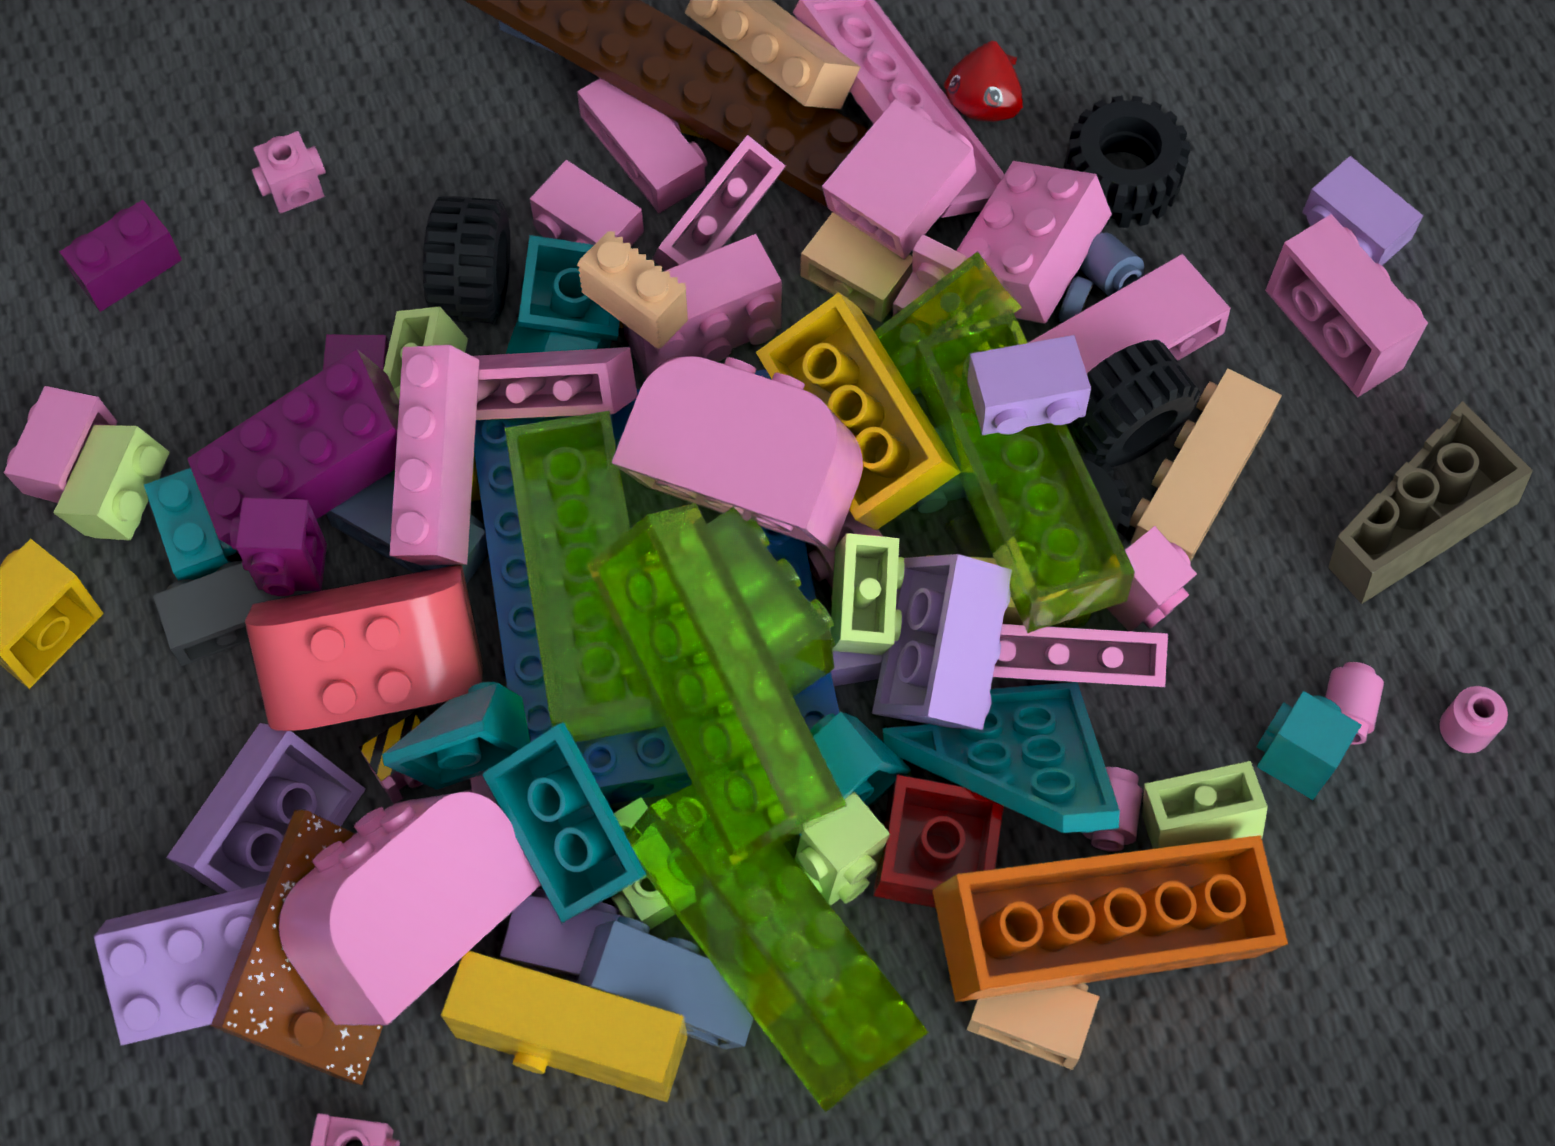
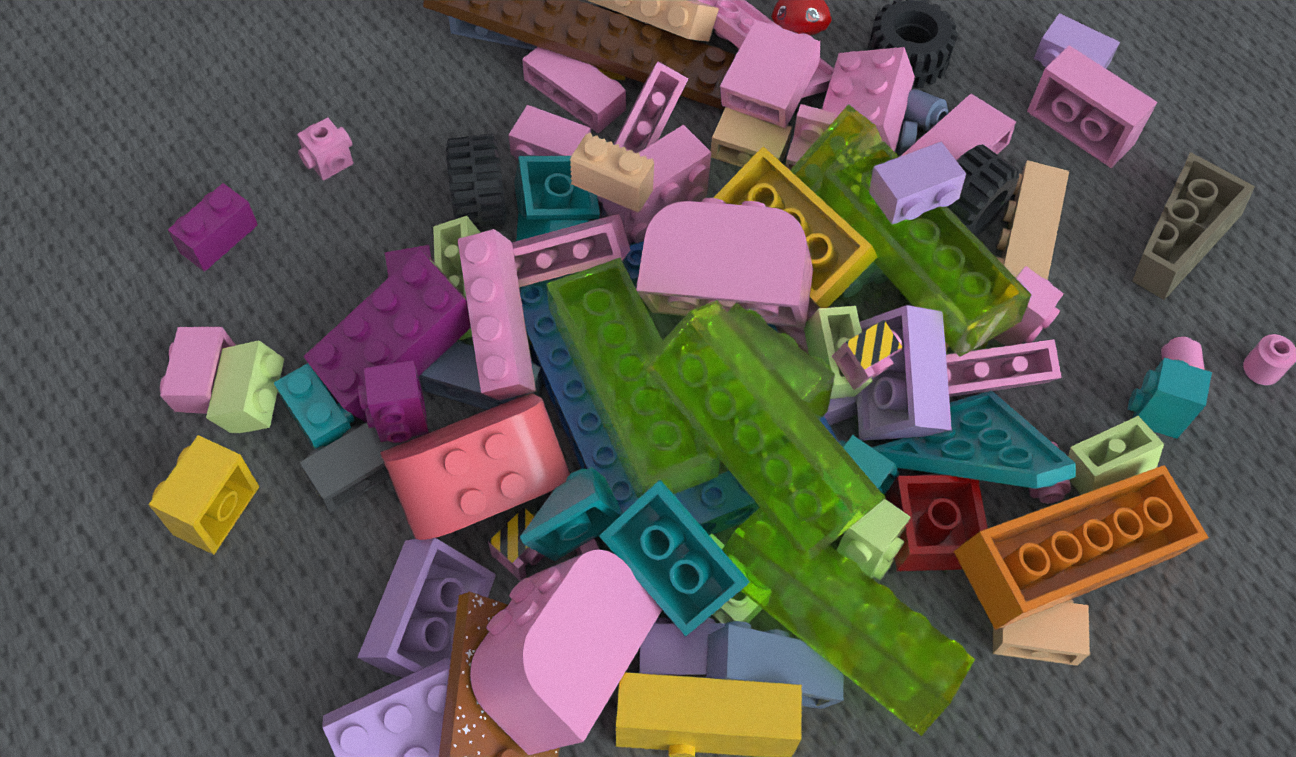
camera: 15 degrees left, 5 degrees down
(892, 607) = (867, 354): none -> brick

